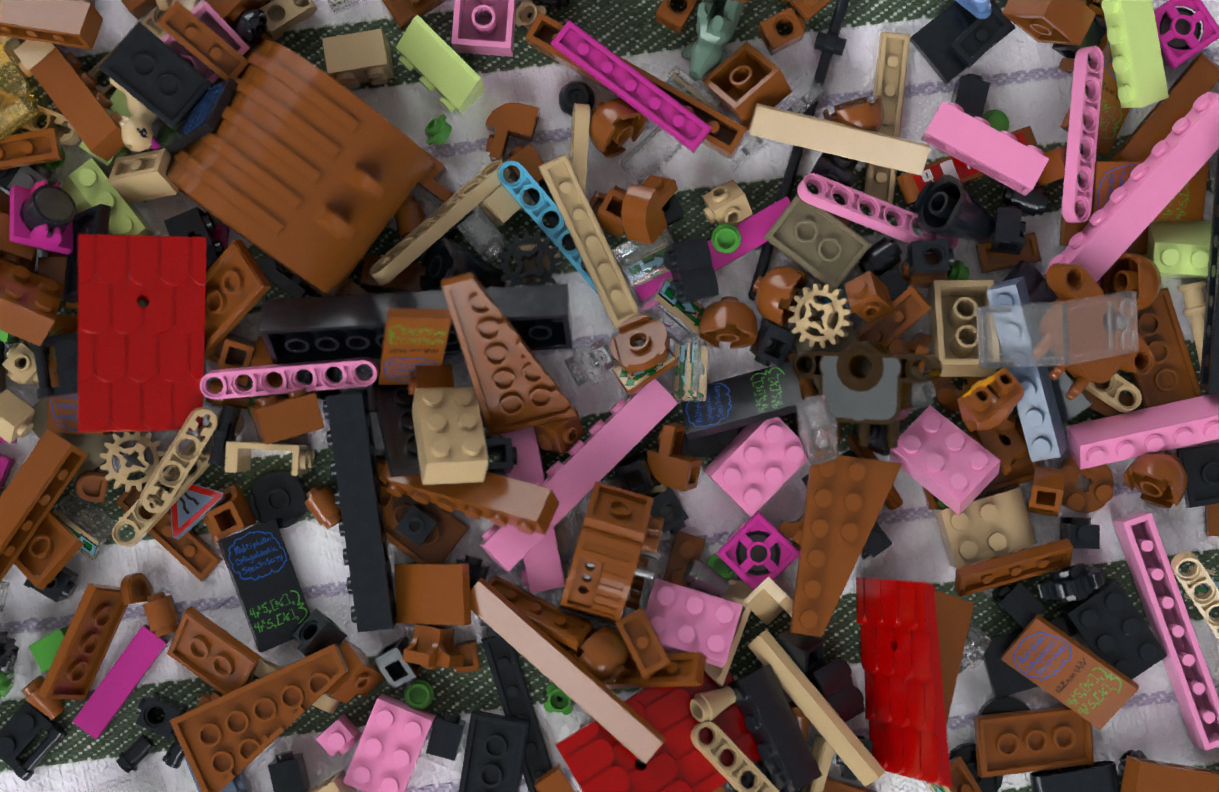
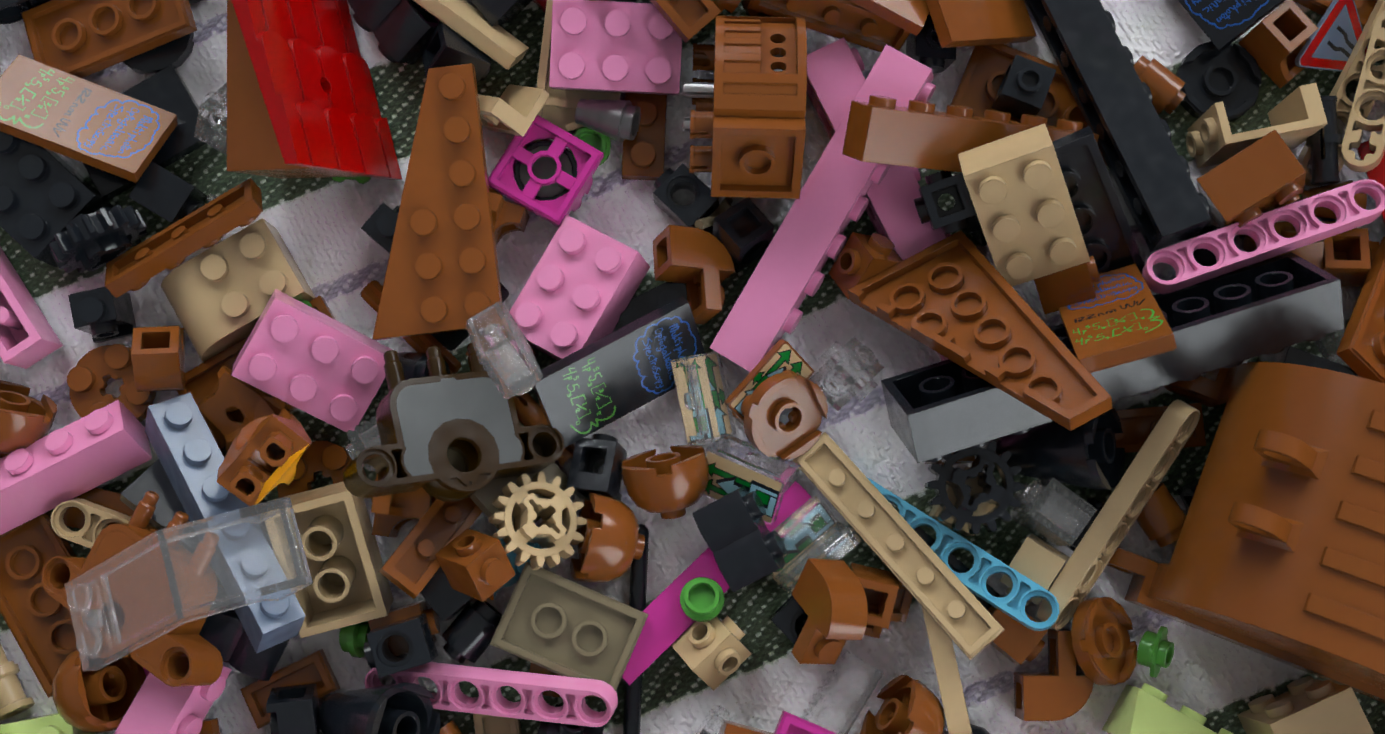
camera: 165 degrees right, 5 degrees down
(471, 145) = (1103, 641): none -> dark orange tile

